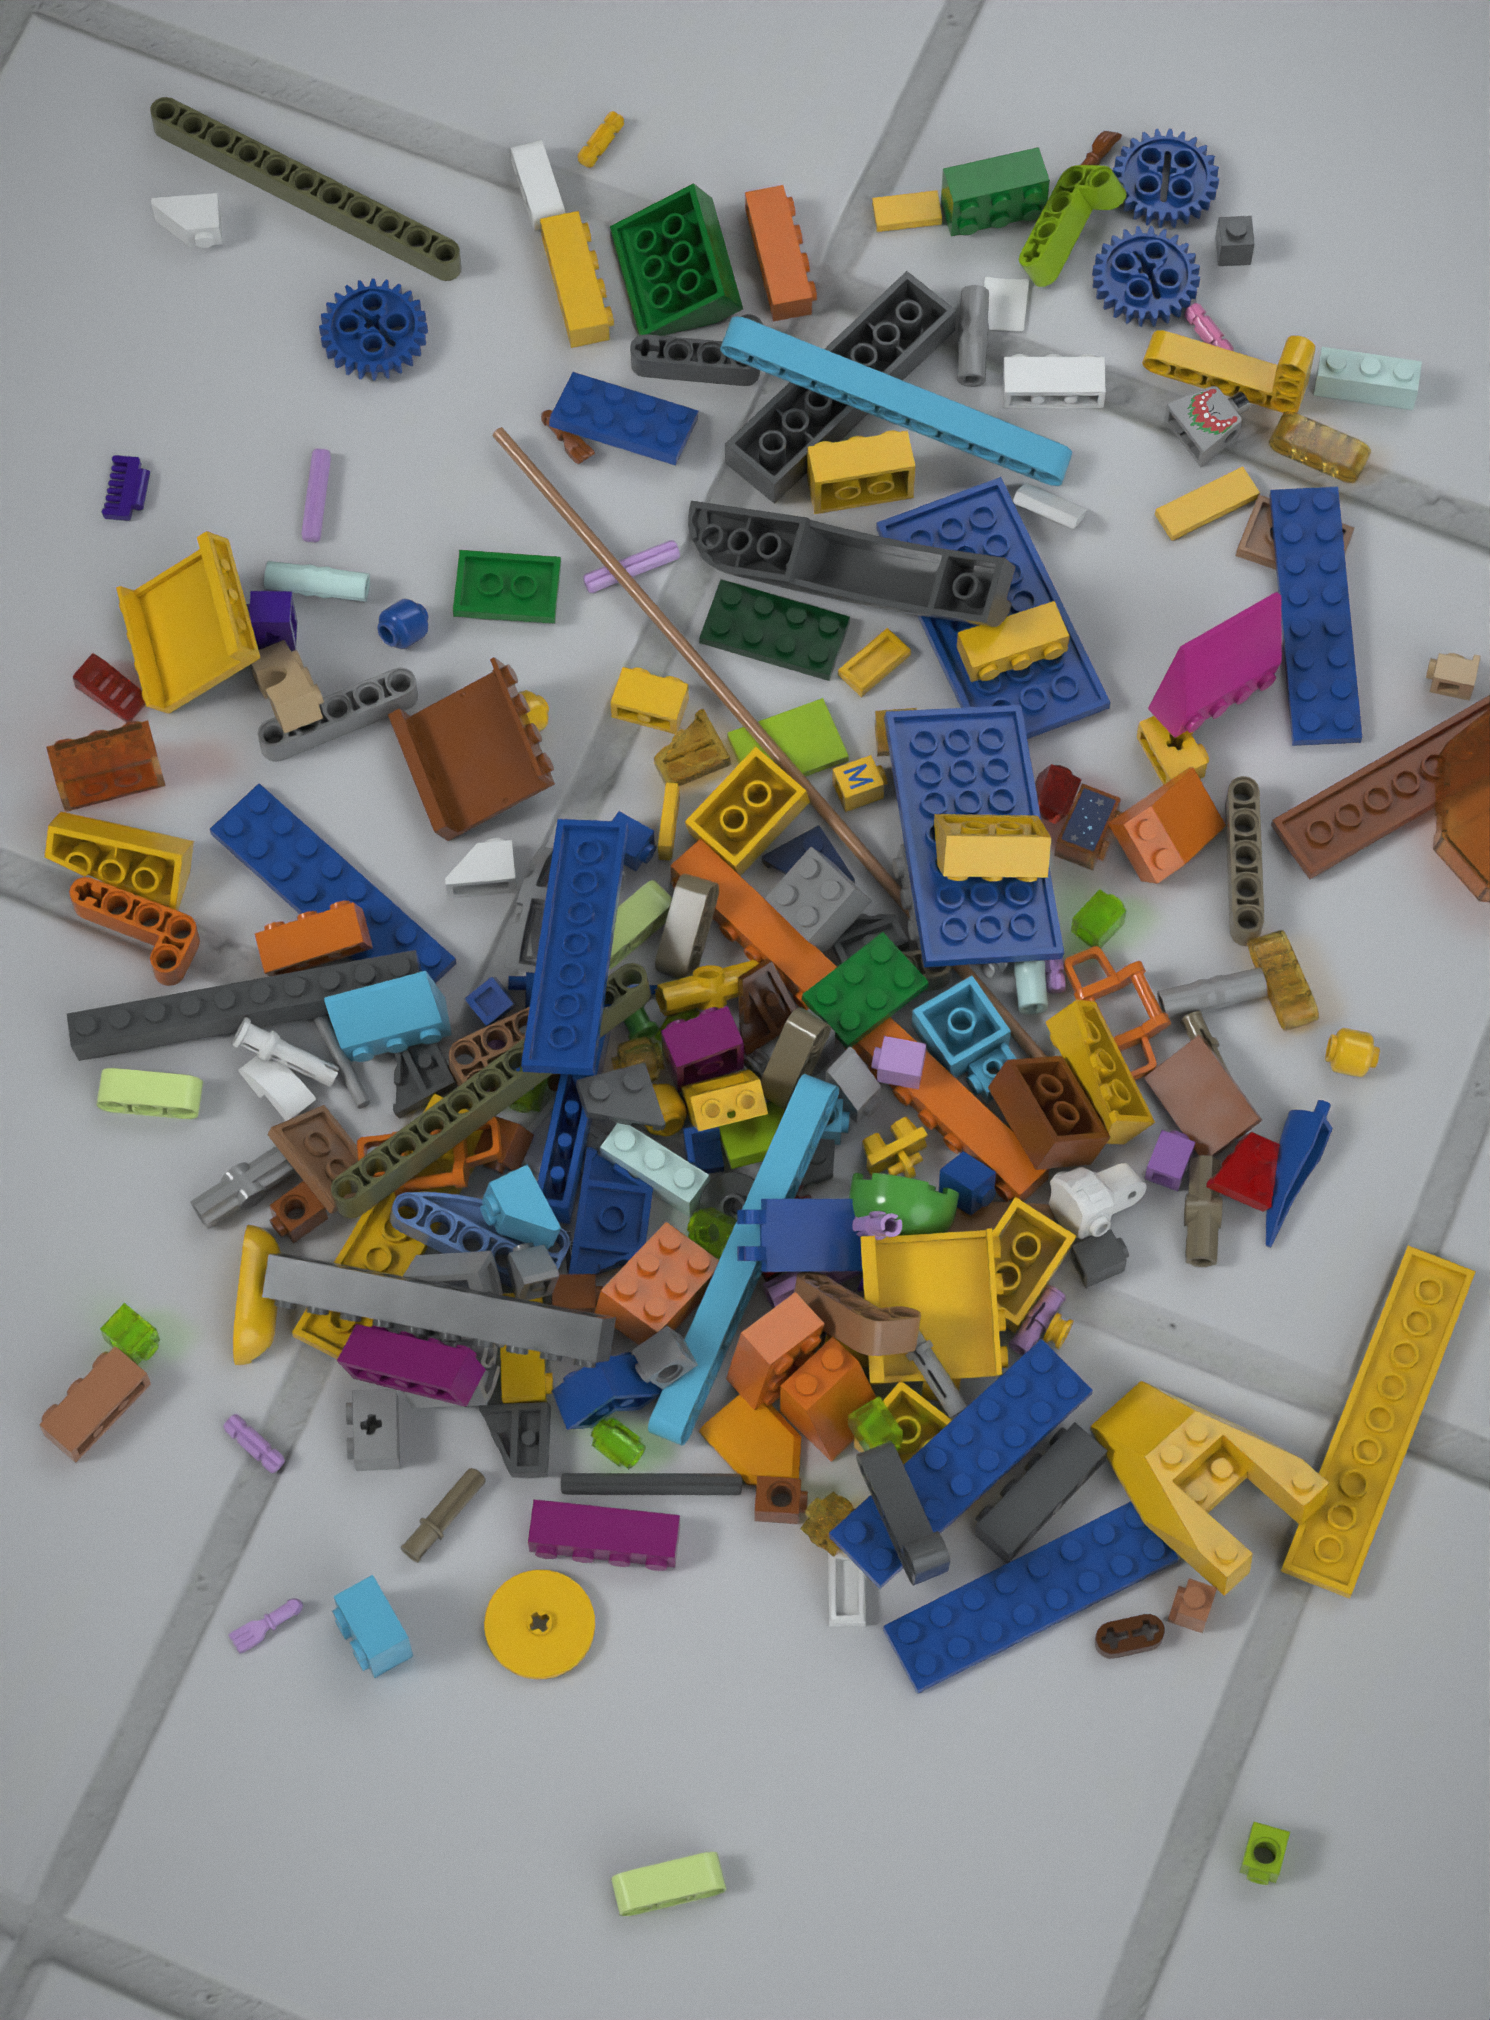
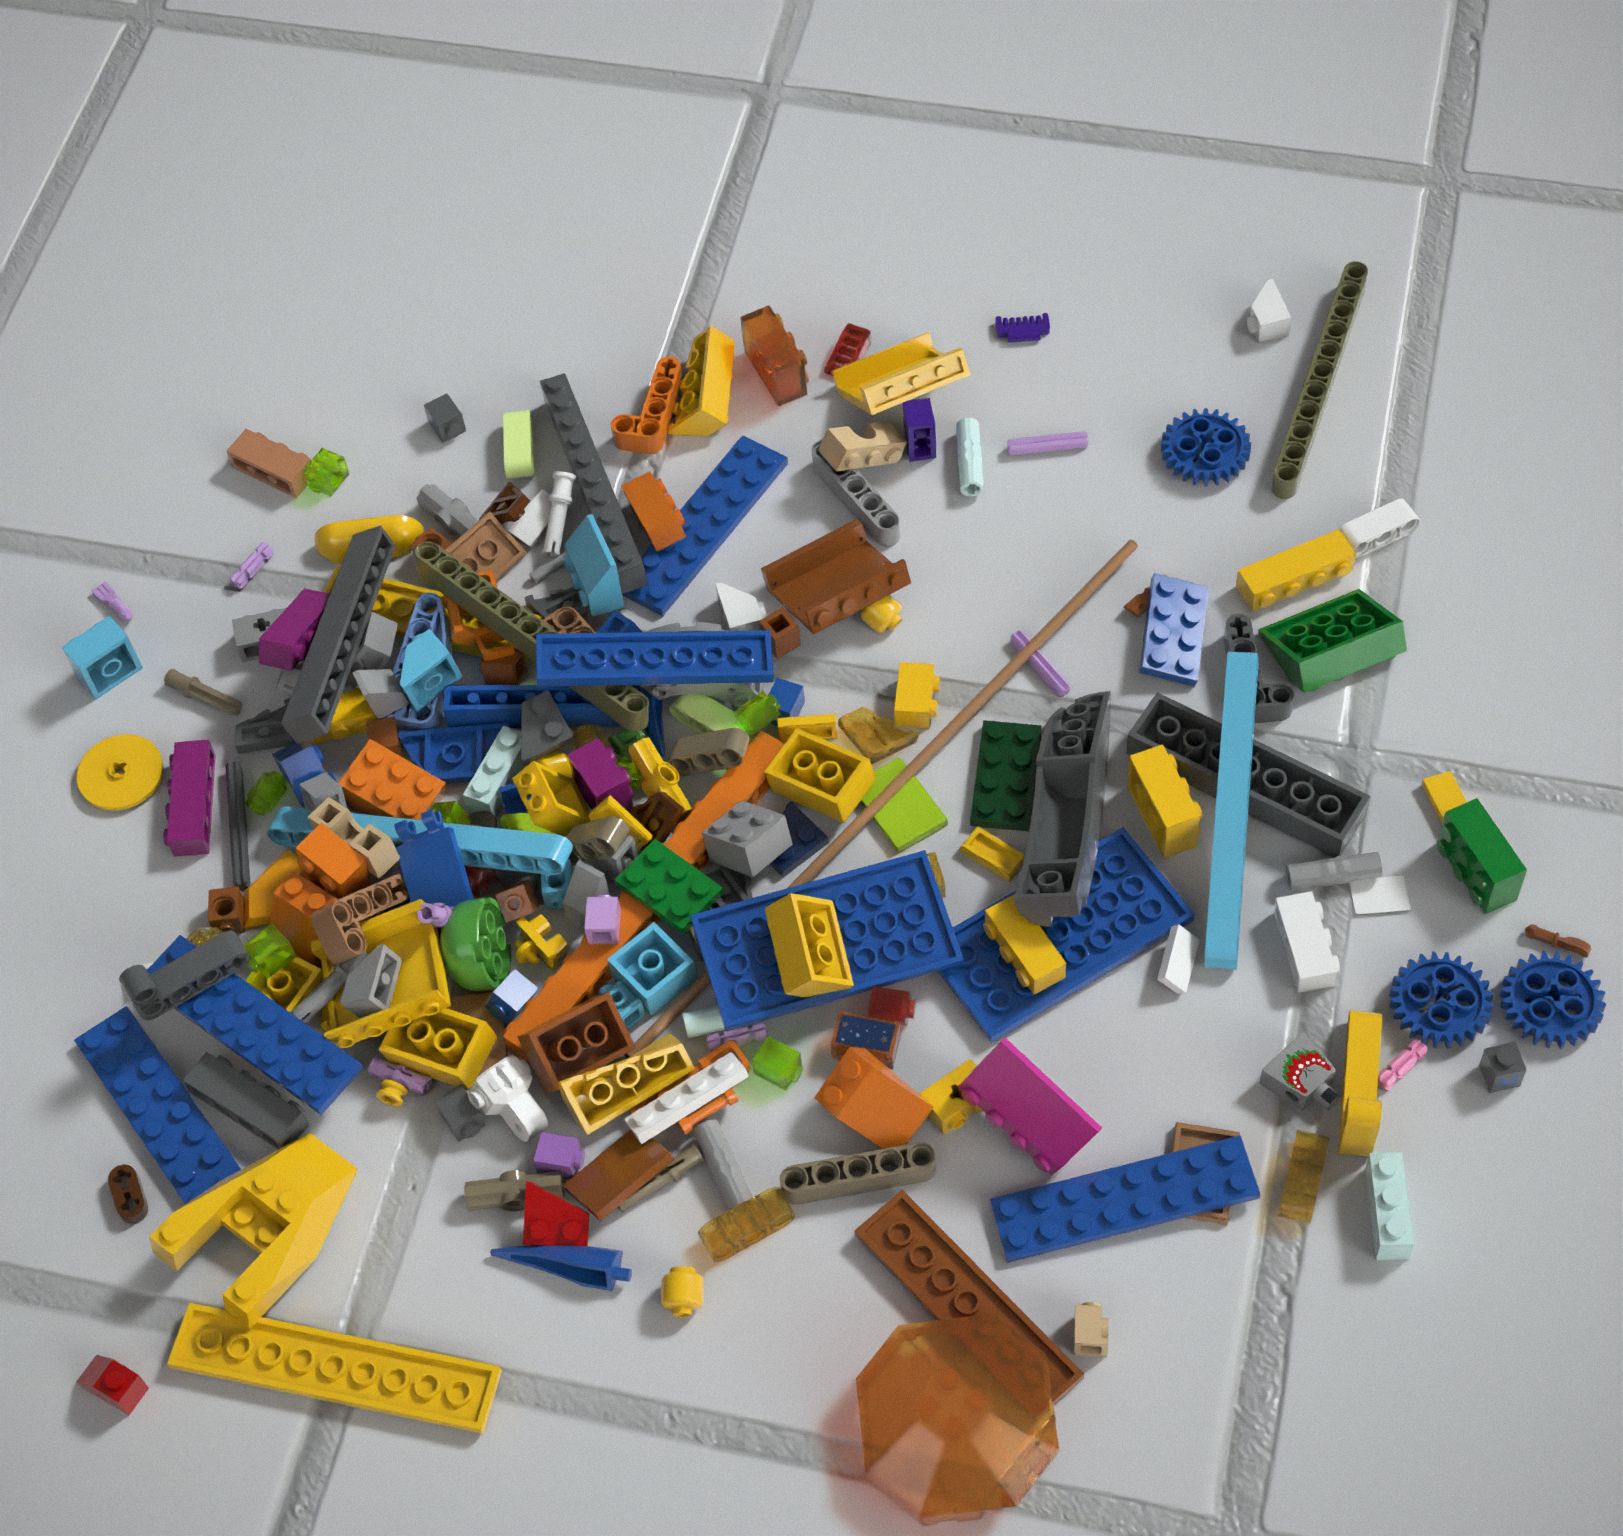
camera: 85 degrees right, 10 degrees down
(82, 1178) = (444, 417): none -> dark grey brick
(252, 1114) = (508, 504): none -> reddish brown wing
(403, 624) = (944, 517): blue head -> none
(507, 586) = (996, 580): green plate -> none
(532, 826) = (783, 631): none -> dark orange brick
(600, 139) = (1440, 565): yellow axle -> none
(654, 860) = (758, 713): none -> clear neon green brick
(764, 1033) = (611, 807): none -> yellow tile
(766, 1291) = (368, 842): none -> tan arch
(779, 253) = (1369, 709): orange brick -> none
(843, 1158) = (517, 900): none -> dark orange brick
(859, 783) = (868, 850): yellow brick -> none
(950, 1312) = (372, 983): none -> light grey slope
(1064, 217) = (1472, 919): lime beam -> none
(1133, 1011) = (686, 1097): none -> white plate
(1192, 1605) = (140, 1231): nougat brick -> none
(1207, 503) = (1220, 1091): yellow tile -> none
(1360, 1659) = (113, 1383): none -> red slope

